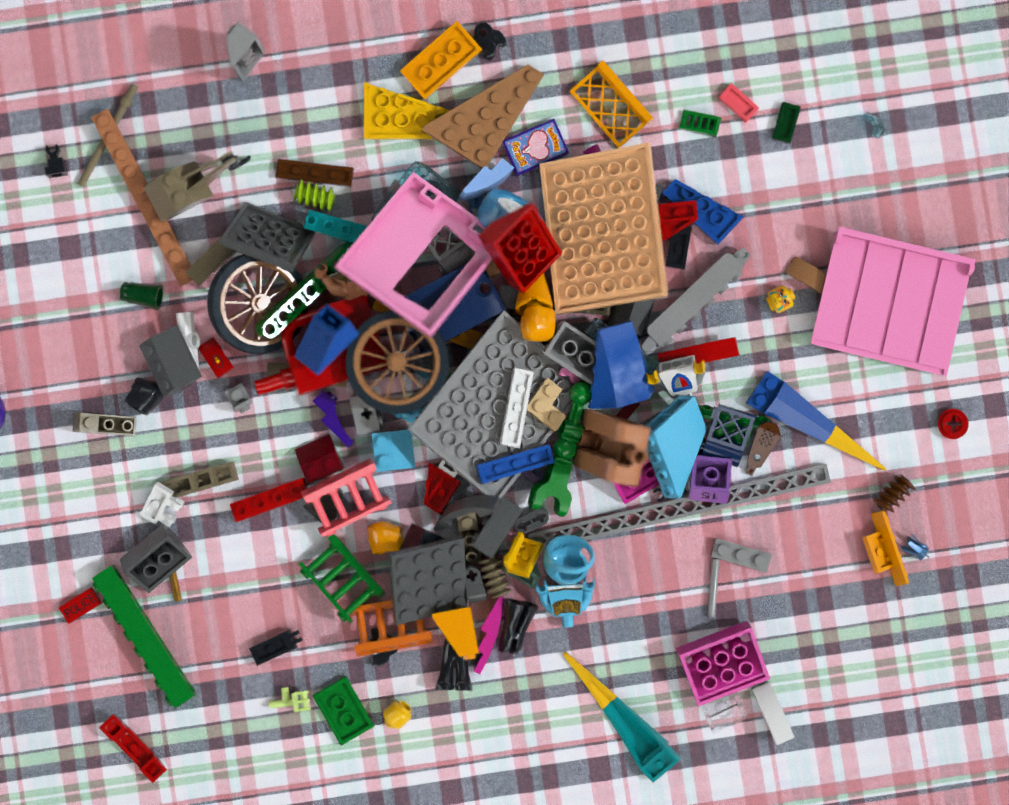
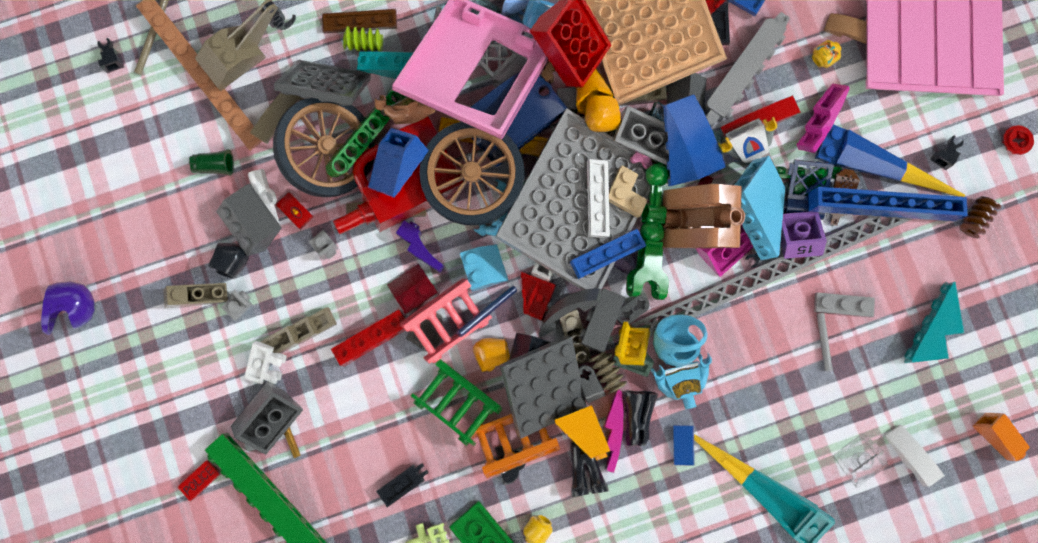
camera: 10 degrees left, 5 degrees down
(144, 441) = (237, 304): none -> light grey bracket
(362, 424) = (450, 248): light grey brick -> none
(388, 495) = (486, 311): none -> dark blue bar
(554, 661) = (684, 445): none -> blue tile
(723, 663) = (853, 414): dark pink slope -> none
(764, 361) = (824, 116): none -> dark pink slope
(800, 466) = (887, 204): none -> blue brick
(831, 590) = (942, 321): none -> teal slope
(862, 712) = (1002, 435): none -> orange slope
(877, 427) = (948, 156): none -> black piece
(884, 551) = (984, 272): light orange bracket -> none
(919, 549) = (1019, 266): flat silver piece -> none

